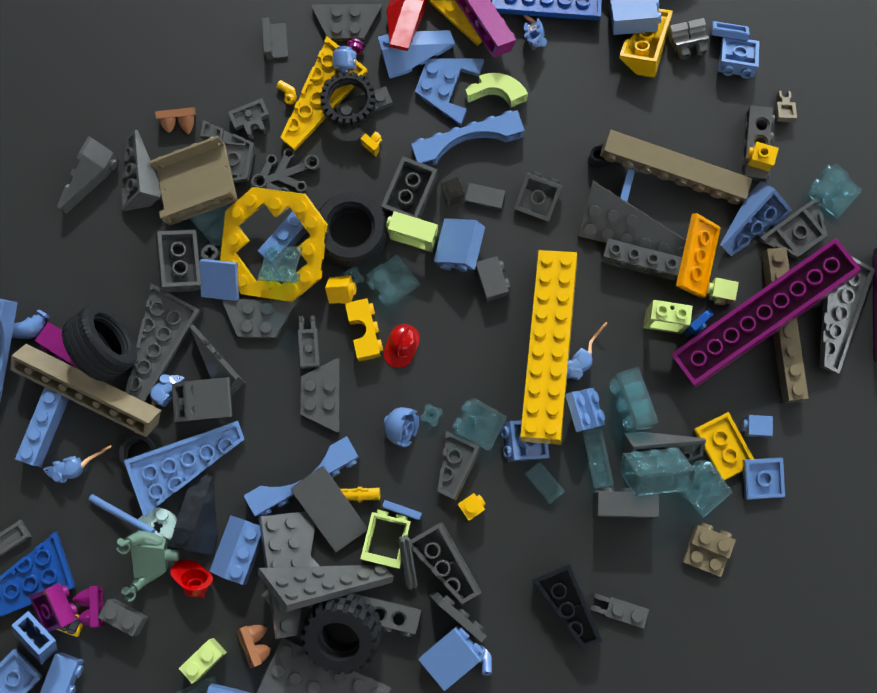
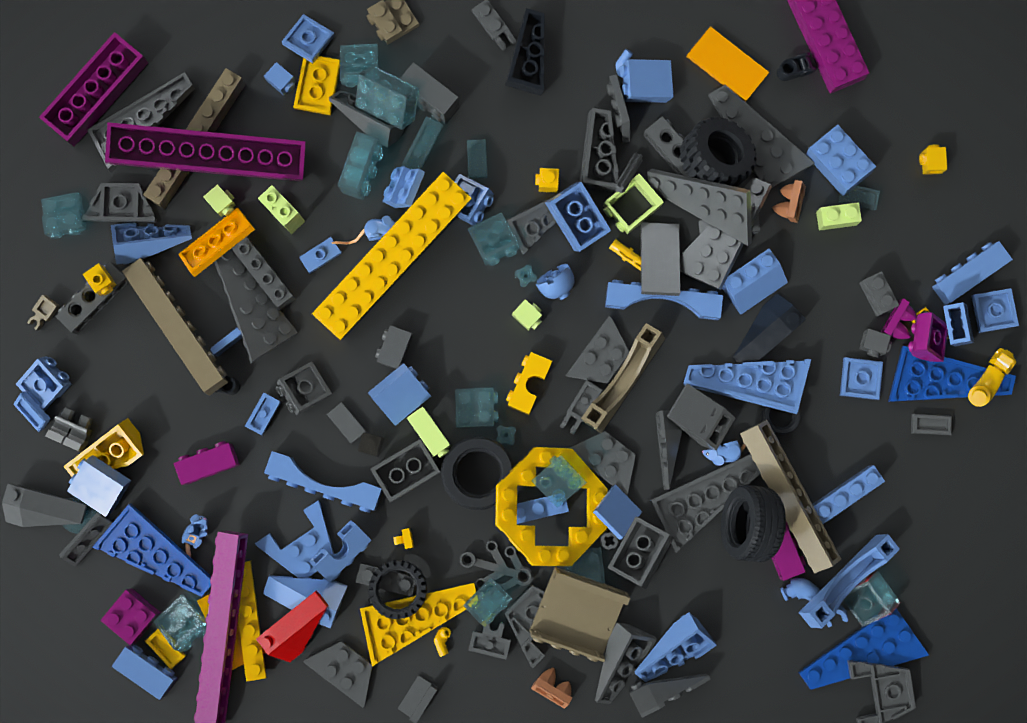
camera: 145 degrees left, 5 degrees up
(69, 468) = (845, 445): medium blue animal -> none
(92, 535) = (861, 378): none -> medium blue tile
(99, 572) = (875, 343): none -> dark grey brick
(101, 221) = (679, 643): none -> medium blue wedge
(120, 514) = (828, 376): medium blue bar -> none
(148, 559) = (829, 321): sand green torso -> none
(163, 517) = (815, 341): light aqua plate -> none
(192, 578) = (804, 285): red piece -> none
(271, 138) = (487, 602): none -> clear light blue brick
(288, 397) = (608, 402): none -> dark tan arch
(340, 289) = (523, 429): yellow brick -> none
(344, 59) = (374, 628): medium blue head -> none
(356, 46) = (354, 638): magenta plate -> none
(401, 346) = (507, 349): red piece -> none
(402, 510) = (610, 223): medium blue tile -> none
(404, 383) = (528, 315): none -> yellowish green brick
(413, 81) = (331, 565): none -> medium blue arch
(423, 492) = (578, 216): none -> medium blue brick
(499, 85) = (256, 505): yellowish green arch -> none
(554, 155) = (263, 414): none -> medium blue plate
(567, 88) = (206, 463): none -> magenta brick
(609, 308) = (320, 255): none -> medium blue plate
(699, 324) = (256, 188): blue wing -> none

